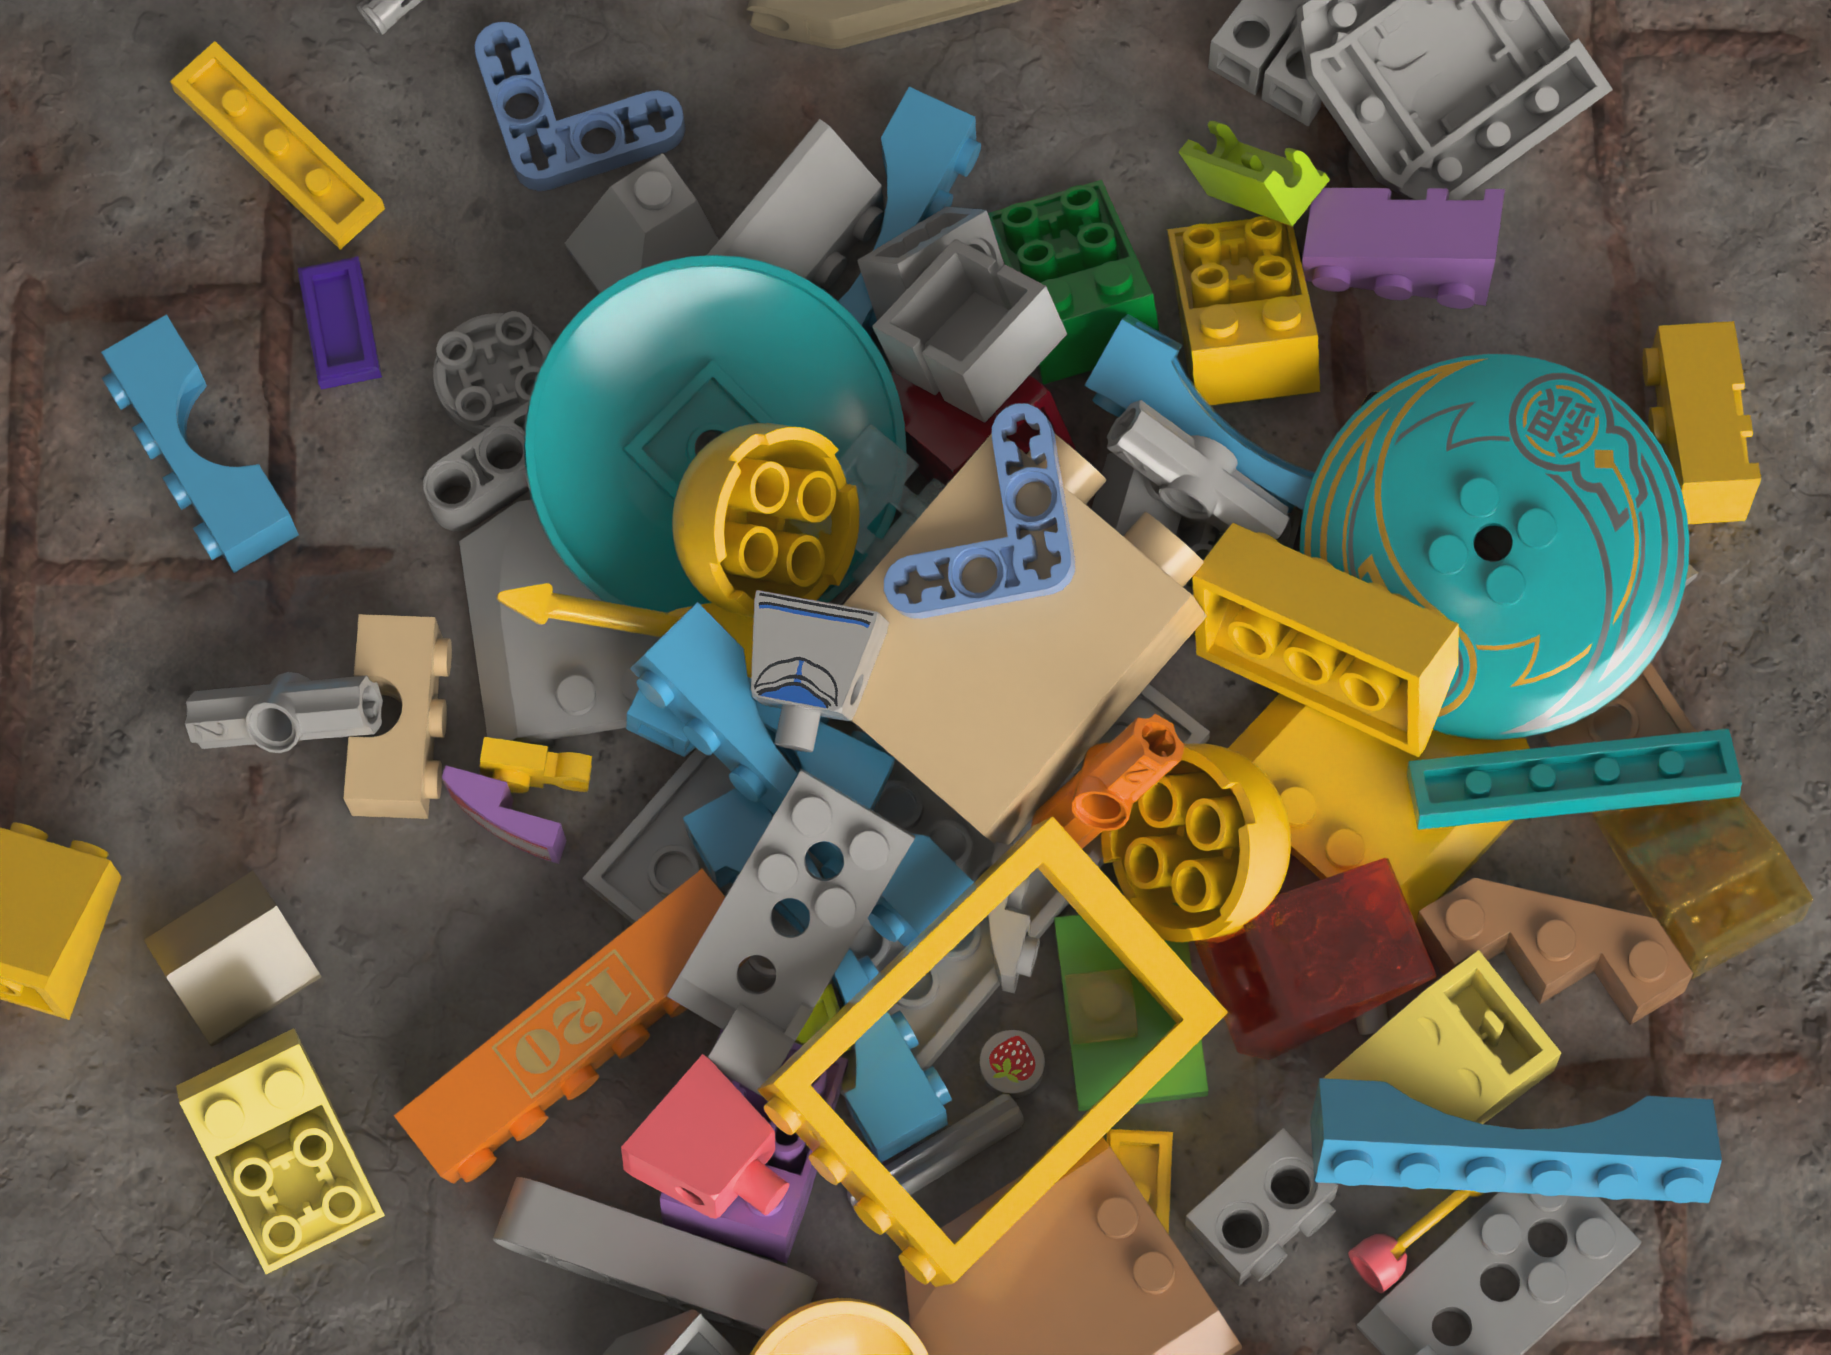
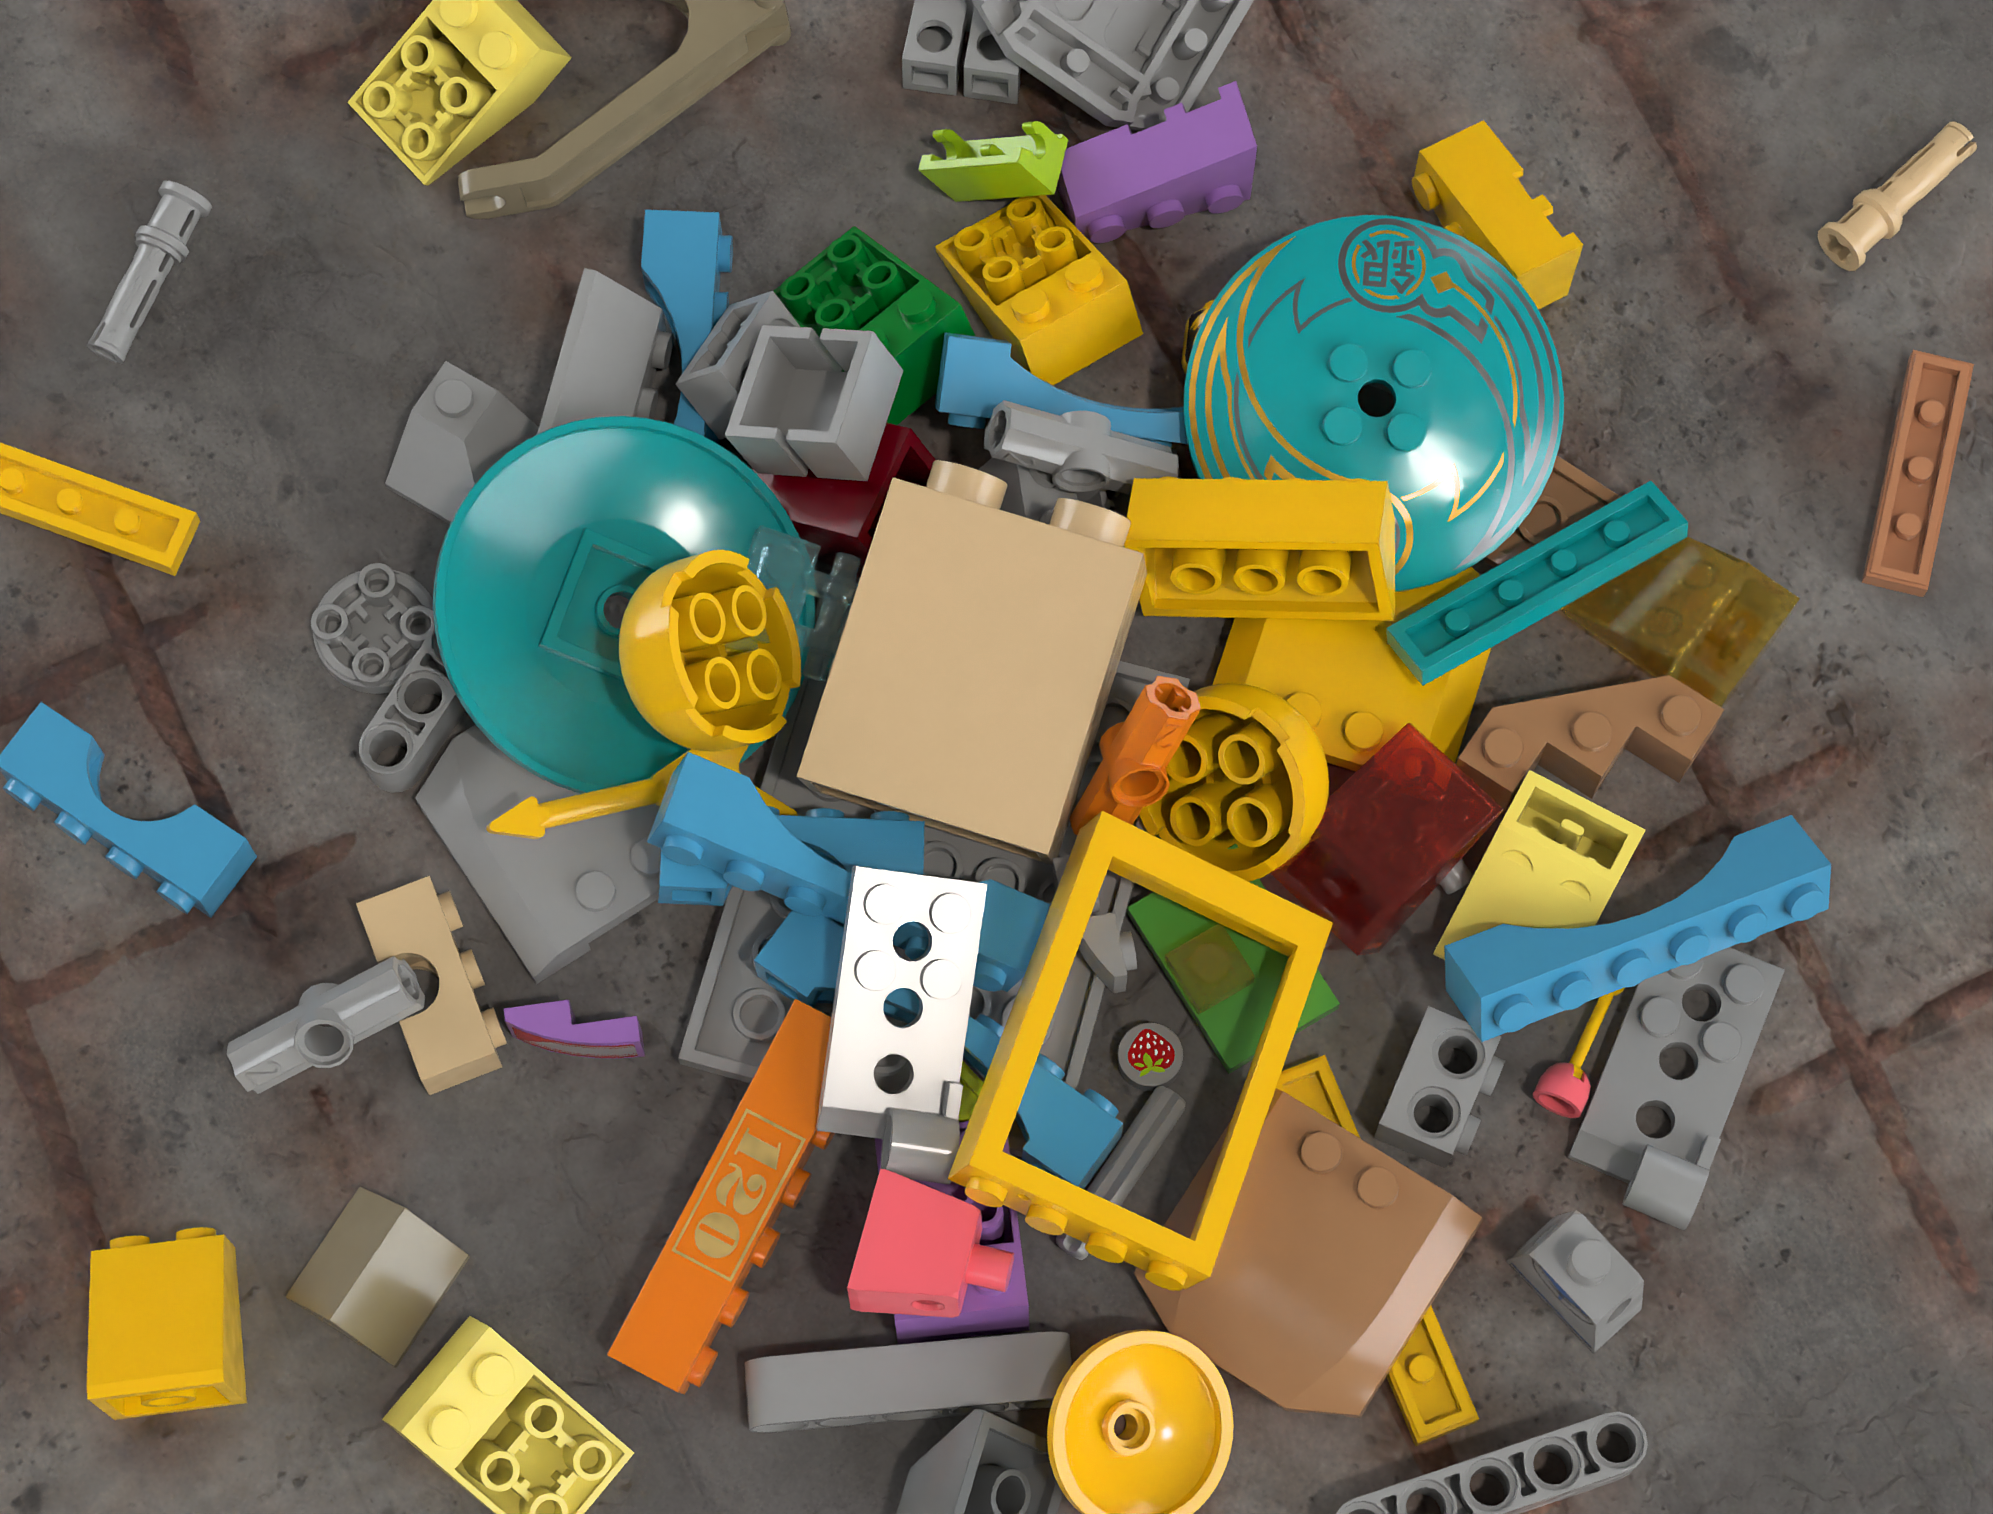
camera: 30 degrees left, 0 degrees up
(339, 323) = (206, 643): dark purple tile -> none
(533, 766) = (582, 974): yellow plate -> none
(563, 138) = (339, 387): medium blue beam -> none
(811, 662) = (819, 762): light grey torso -> none
(1008, 553) = (957, 586): medium blue beam -> none

